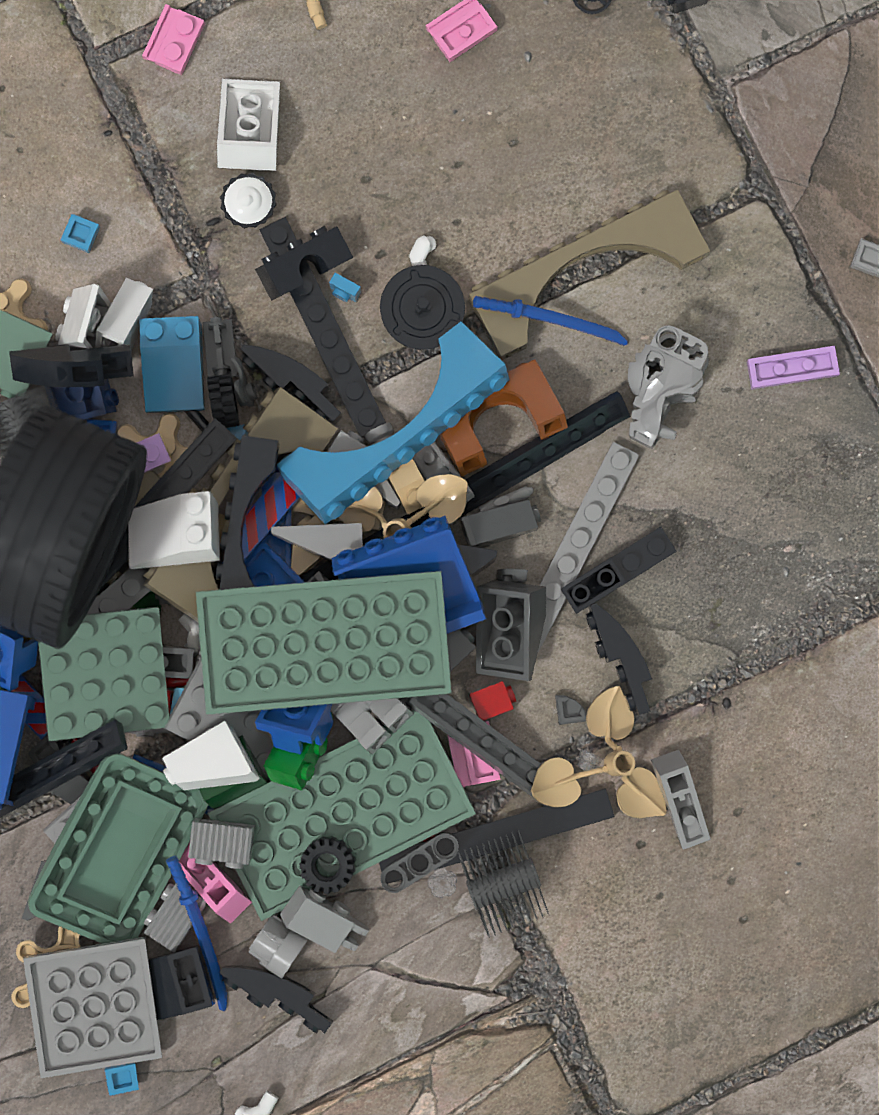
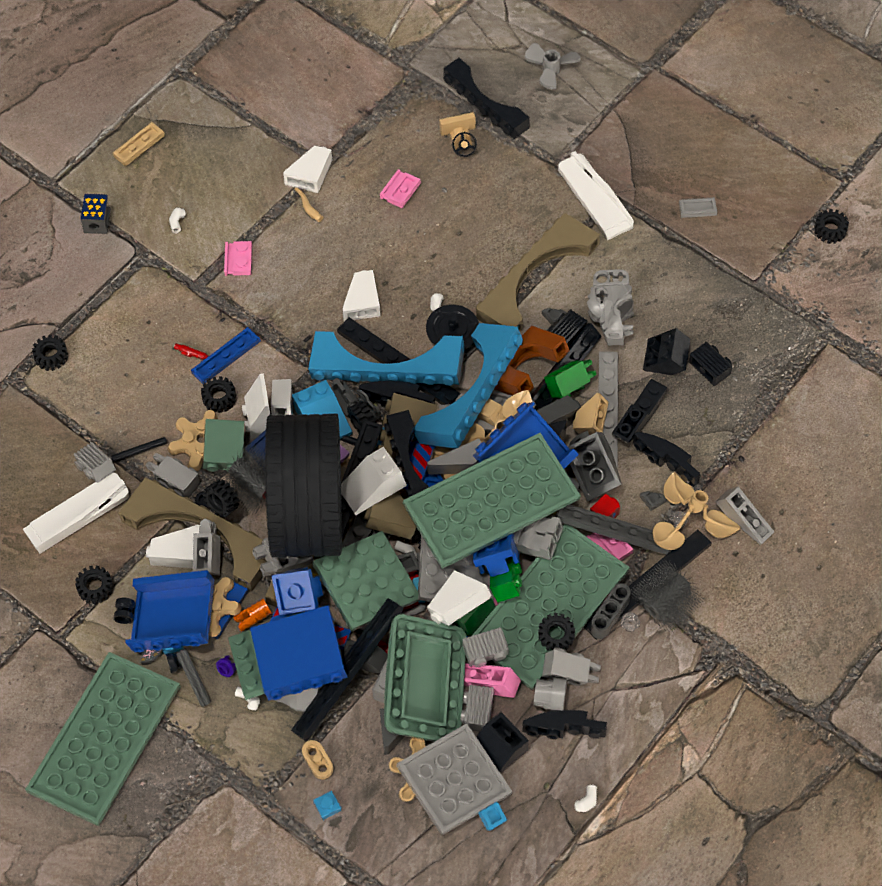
camera: 20 degrees left, 25 degrees down
(36, 169) = (189, 352): none -> red piece
(36, 245) = (218, 385): none -> black tyre
(67, 368) = (254, 432): black slope -> none
(80, 233) = (233, 371): dark azure plate -> none
(84, 198) = (225, 355): none -> blue tile
(188, 898) = (481, 686): blue sword -> none
(248, 124) = (304, 281): white slope -> none
(248, 200) = (323, 315): white piece -> none
(282, 273) = (364, 336): black arch -> none
(319, 192) = (362, 297): none -> white slope
(344, 288) = (402, 337): dark azure plate -> none
(367, 367) = (437, 366): none -> dark azure arch
(519, 309) = (508, 302): blue sword -> none
(545, 548) = (591, 415): none -> tan slope
(546, 471) = (569, 378): none -> green hinge
(581, 349) = (552, 315): none -> dark grey tile
(584, 386) = (568, 326): none -> black brick
(707, 491) = (667, 353): none -> black slope
(740, 173) = (595, 196): none -> white piece
(762, 537) = (710, 363): none -> black brick
(793, 367) = (678, 275): lavender plate -> none

